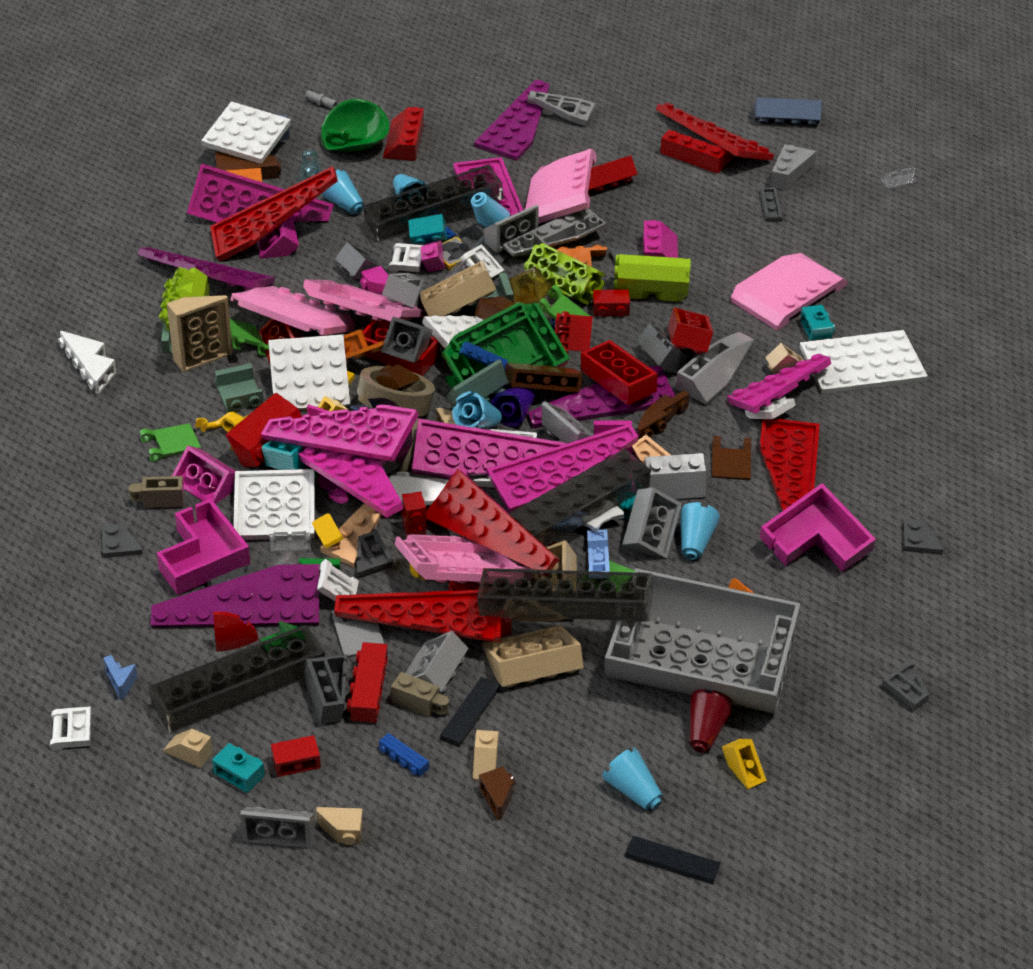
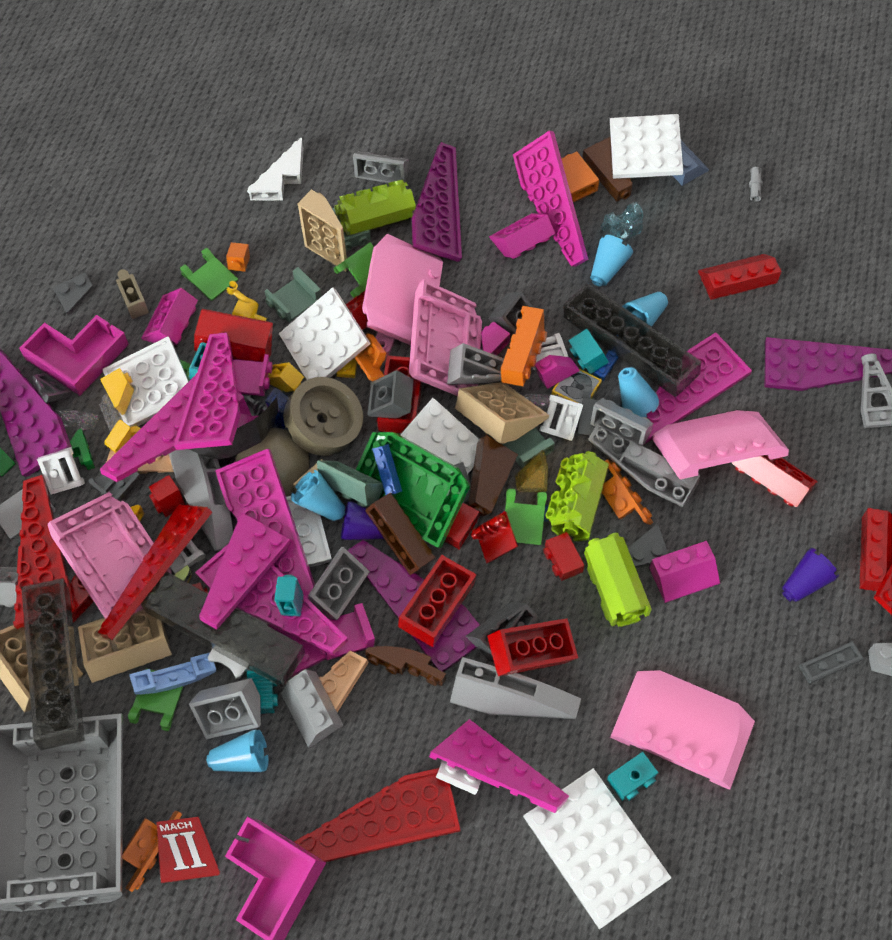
camera: 70 degrees right, 20 degrees up
(136, 293) = (380, 167): none -> light grey slope
(168, 411) = (238, 257): none -> orange brick
(255, 222) = (522, 211): red wing -> none
(273, 518) = (119, 389): none -> yellow slope
(354, 126) = (714, 227): green piece -> none
(396, 377) = (327, 410): reddish brown slope -> none
(405, 254) = (524, 347): none -> orange wedge
(524, 464) = (245, 561): none -> dark pink wing
(578, 436) = (289, 596): none -> teal brick
(698, 184) = (809, 576): none -> dark purple cone
(729, 462) = (370, 757): reddish brown flag -> none
(766, 585) = (184, 850): none -> red sticker
(782, 358) = (550, 763): tan slope -> none

